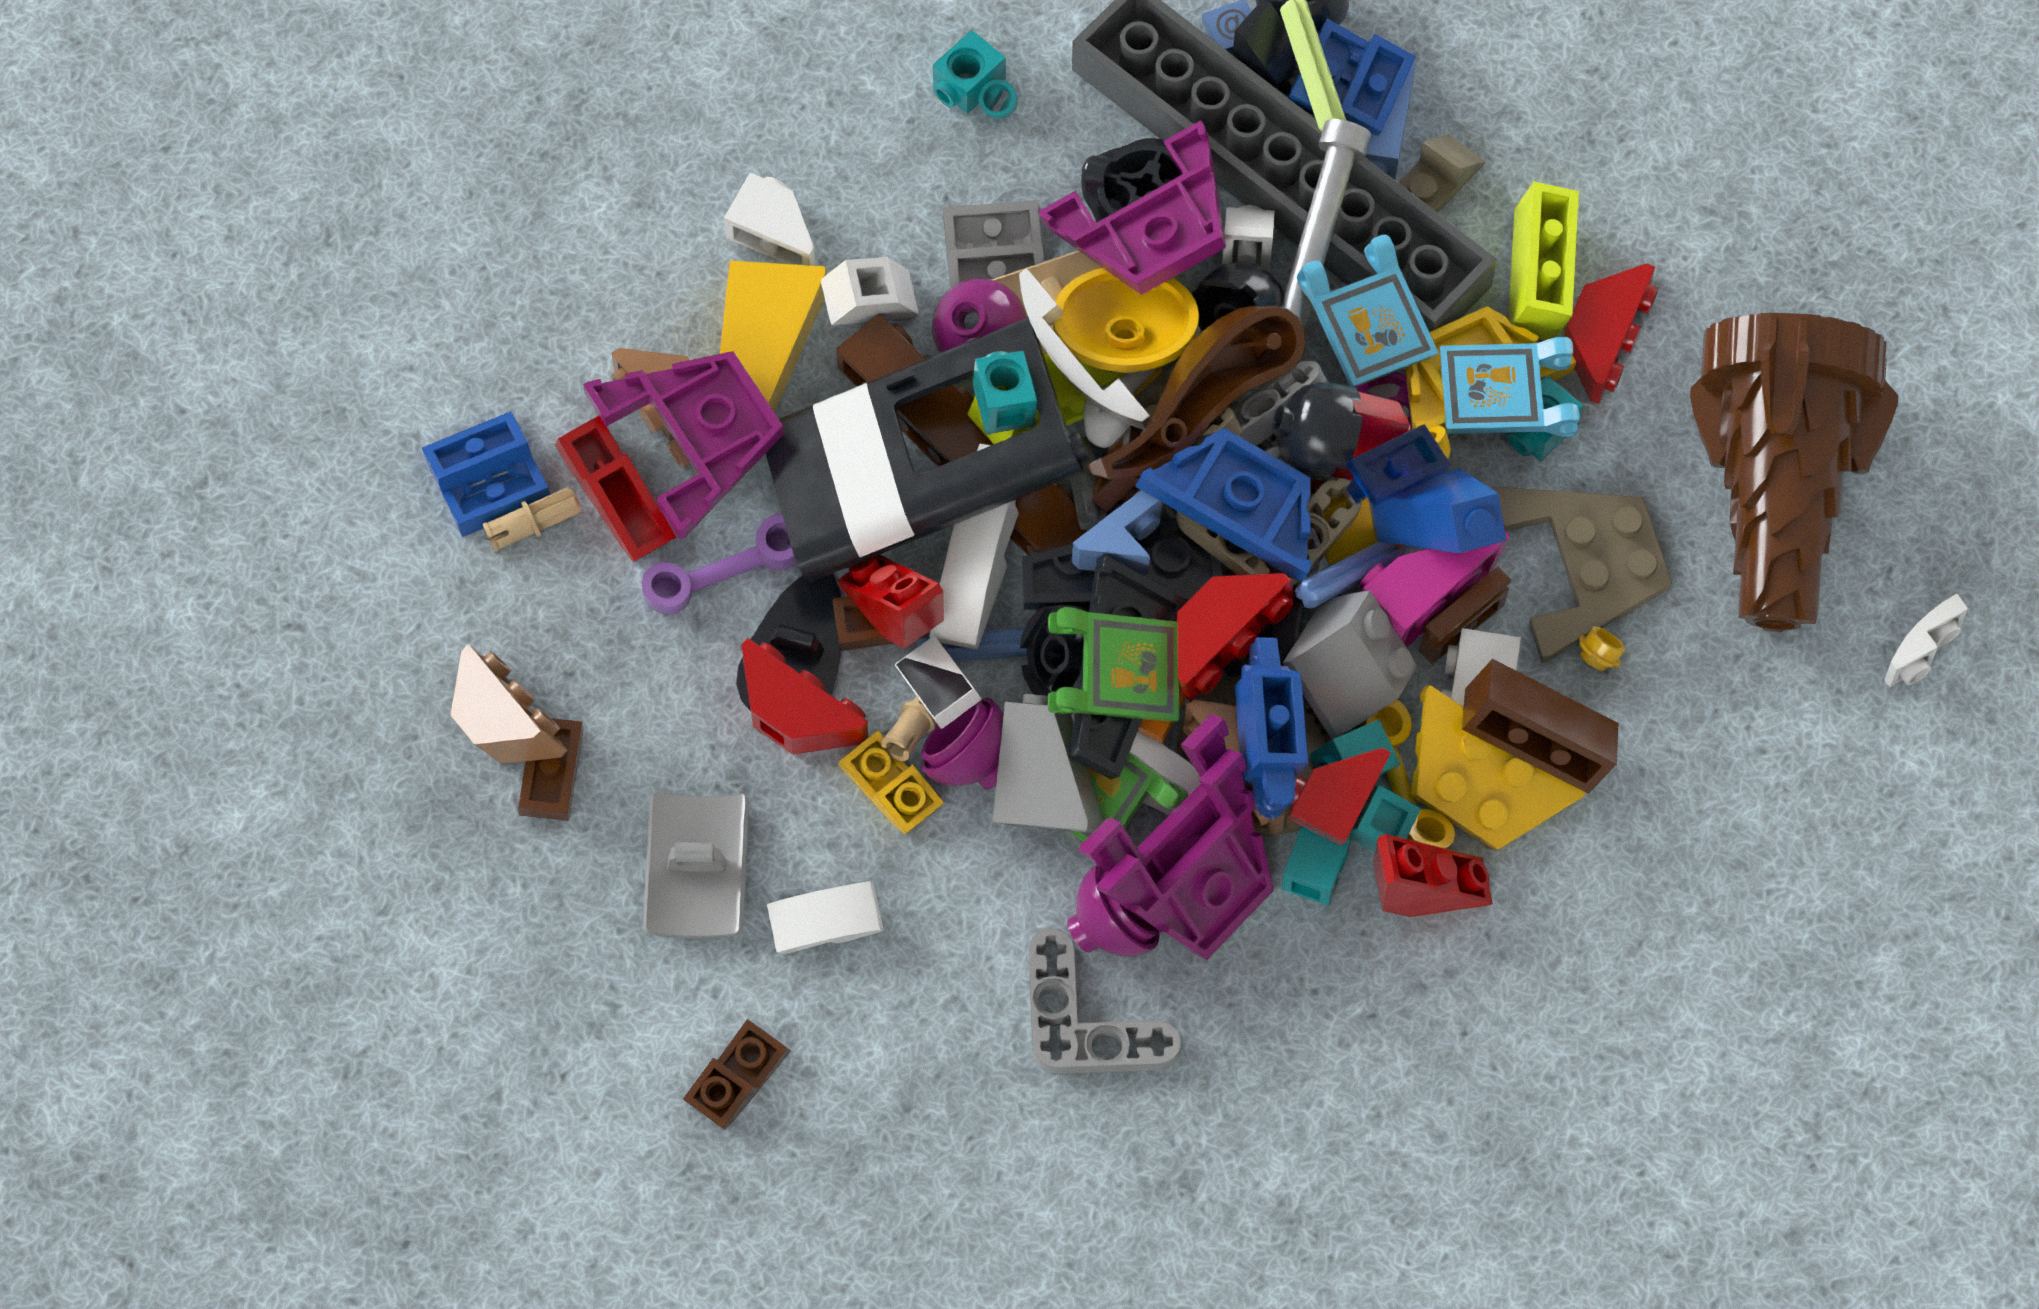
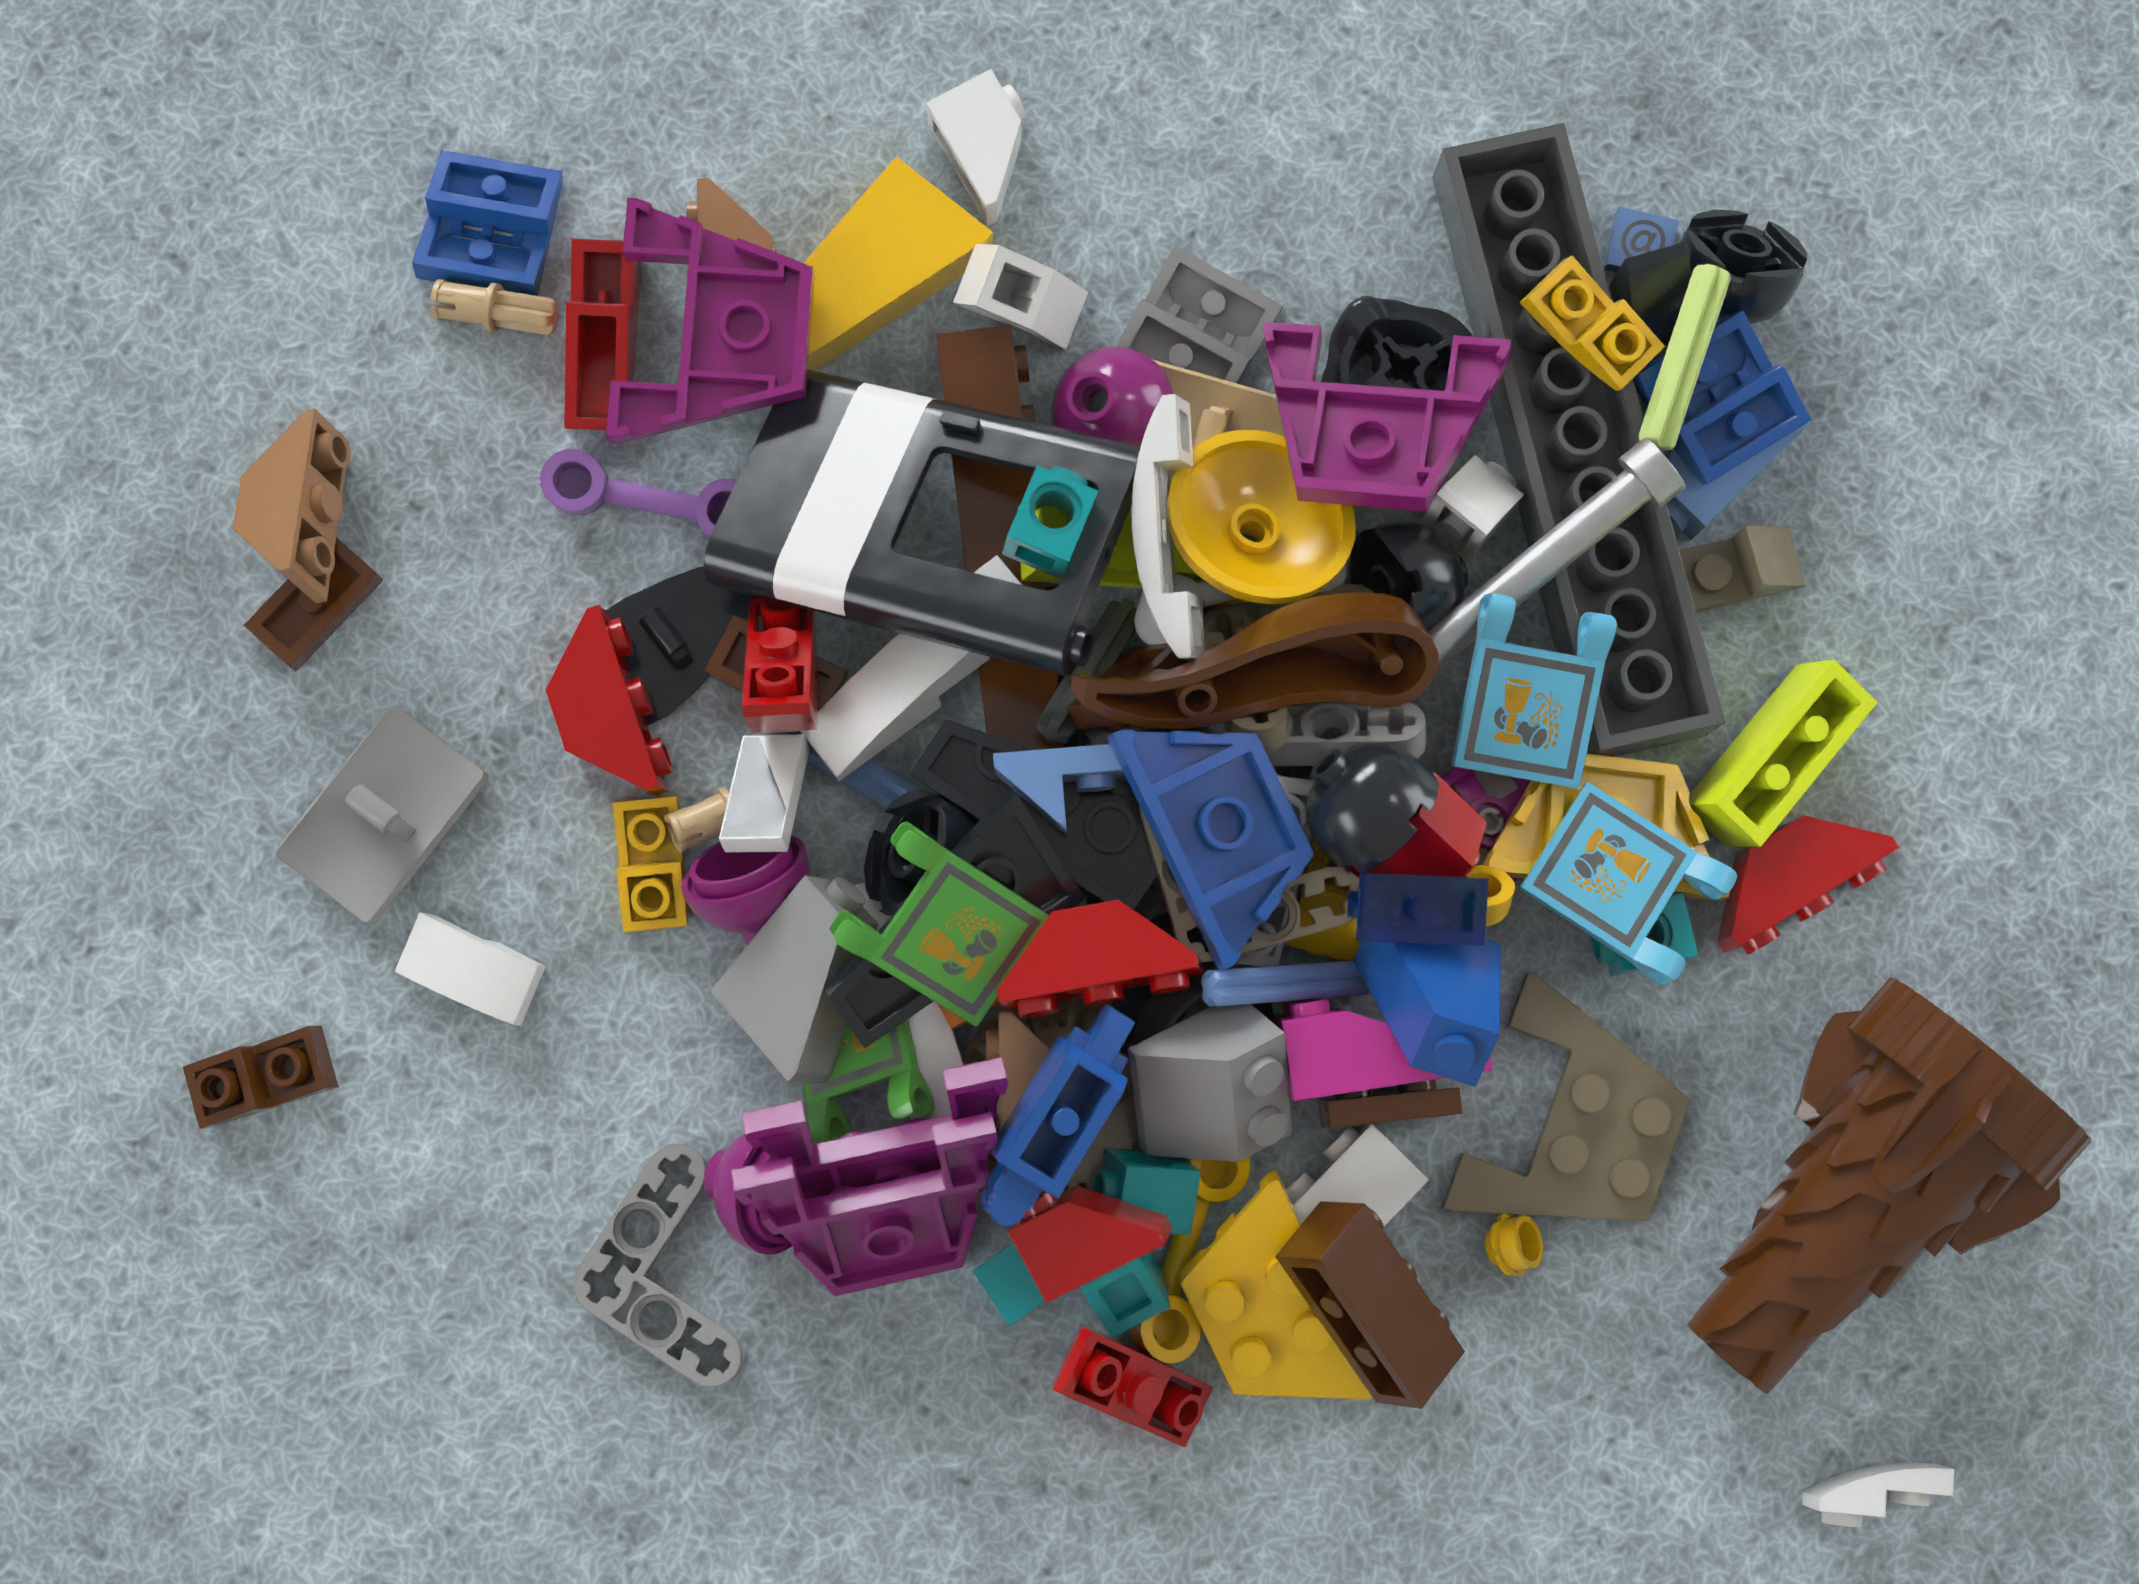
camera: 30 degrees right, 15 degrees up
(969, 56) = (1324, 85): teal brick -> none
(991, 94) = (1319, 150): teal hinge -> none
(1237, 84) = (1590, 326): none -> yellow slope

